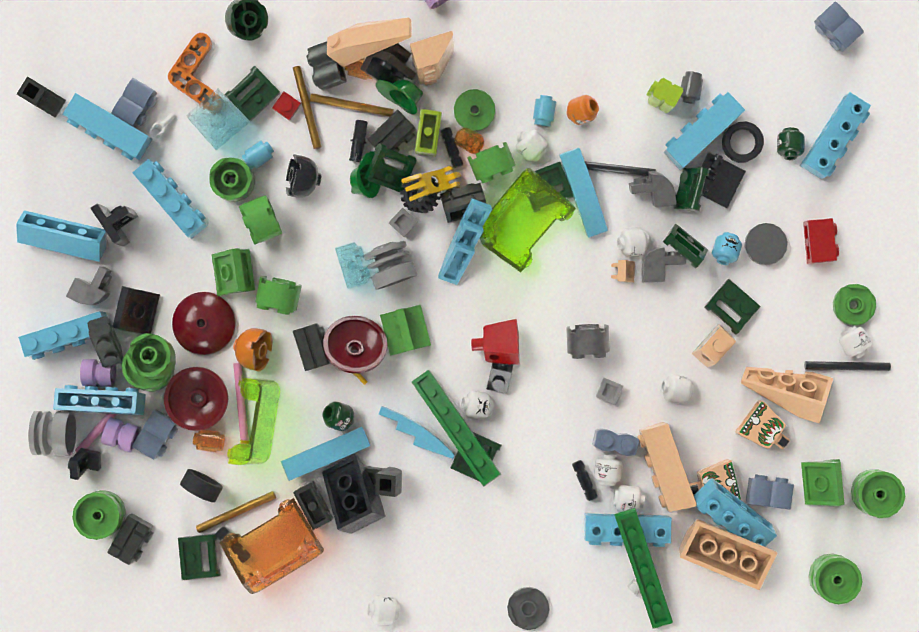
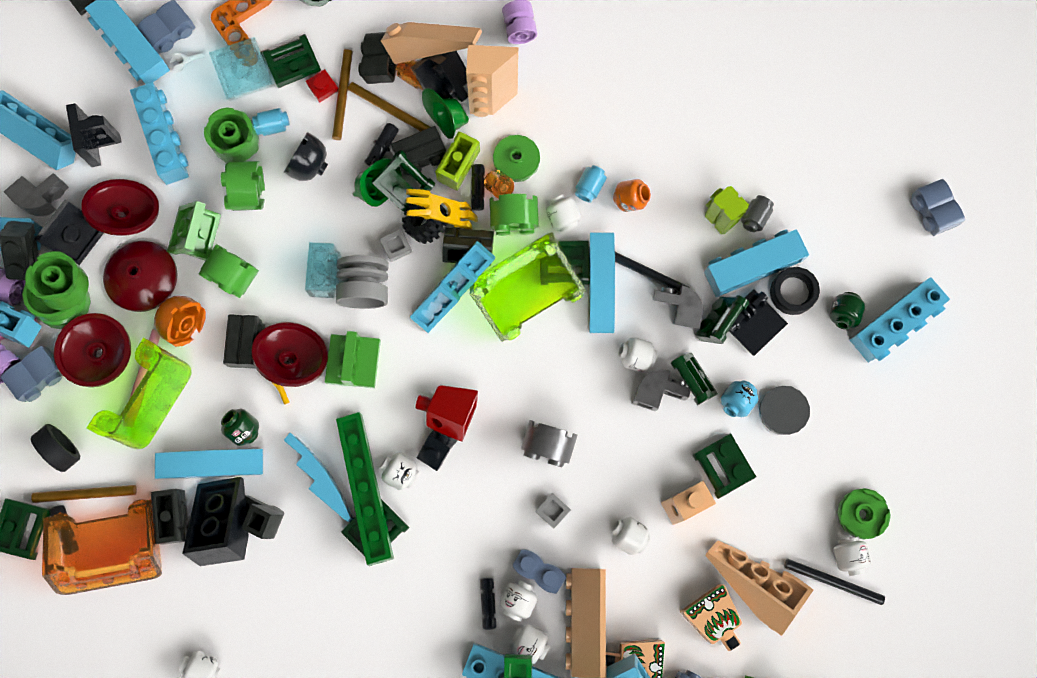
camera: 15 degrees right, 10 degrees down
(164, 265) = (120, 207): none -> dark red dish
(209, 441) = (87, 401): clear orange brick -> none
(626, 271) = (618, 382): light nougat tile -> none
(820, 240) = (847, 428): red brick -> none

